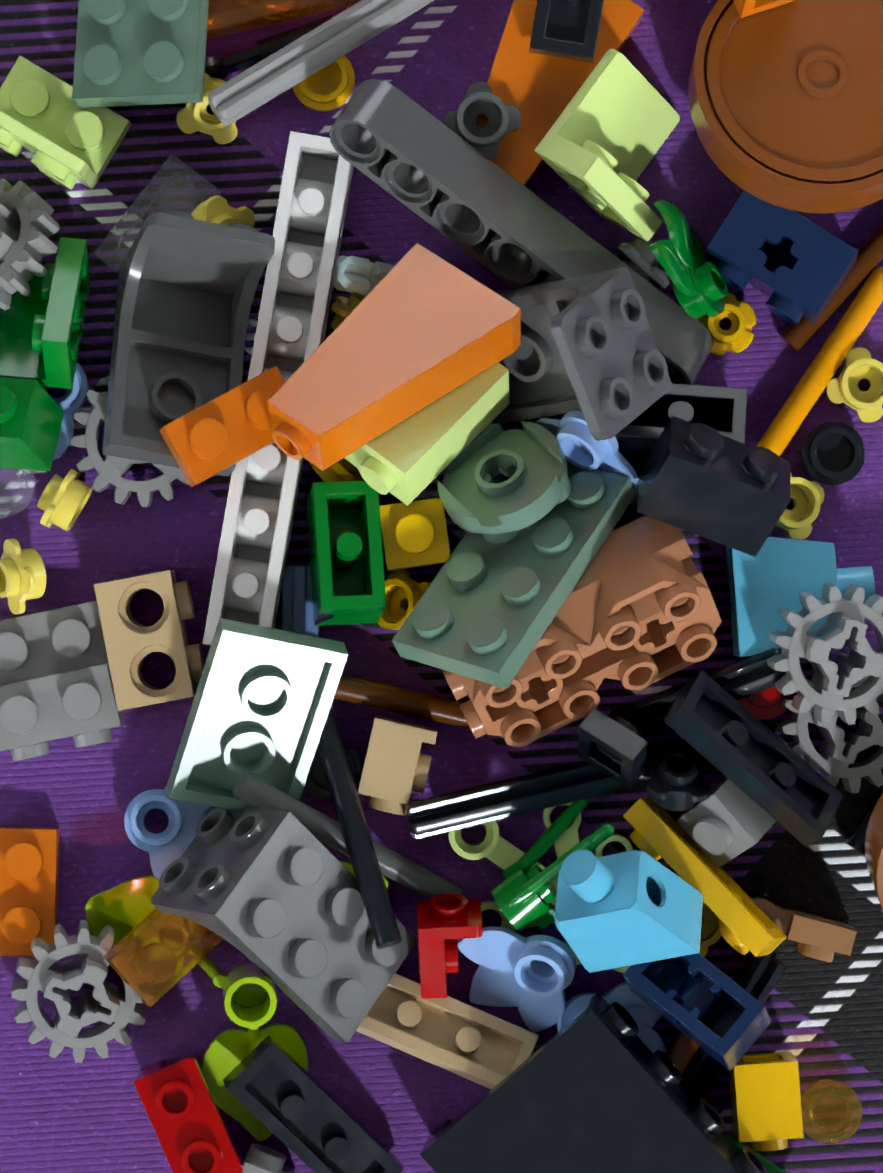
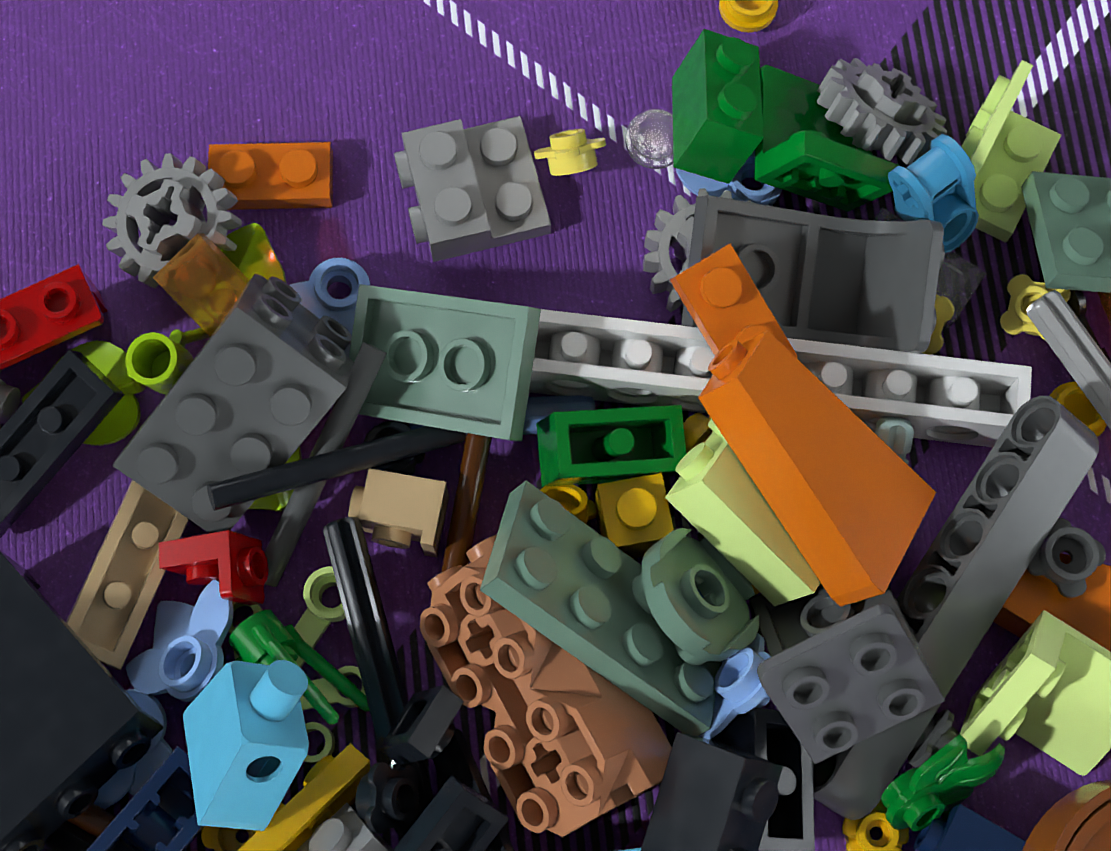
camera: 85 degrees right, 15 degrees down
(64, 500) = (644, 189): light yellow plate -> none
(102, 203) = (938, 189): none -> dark azure piece
(130, 642) = (510, 253): tan brick -> none

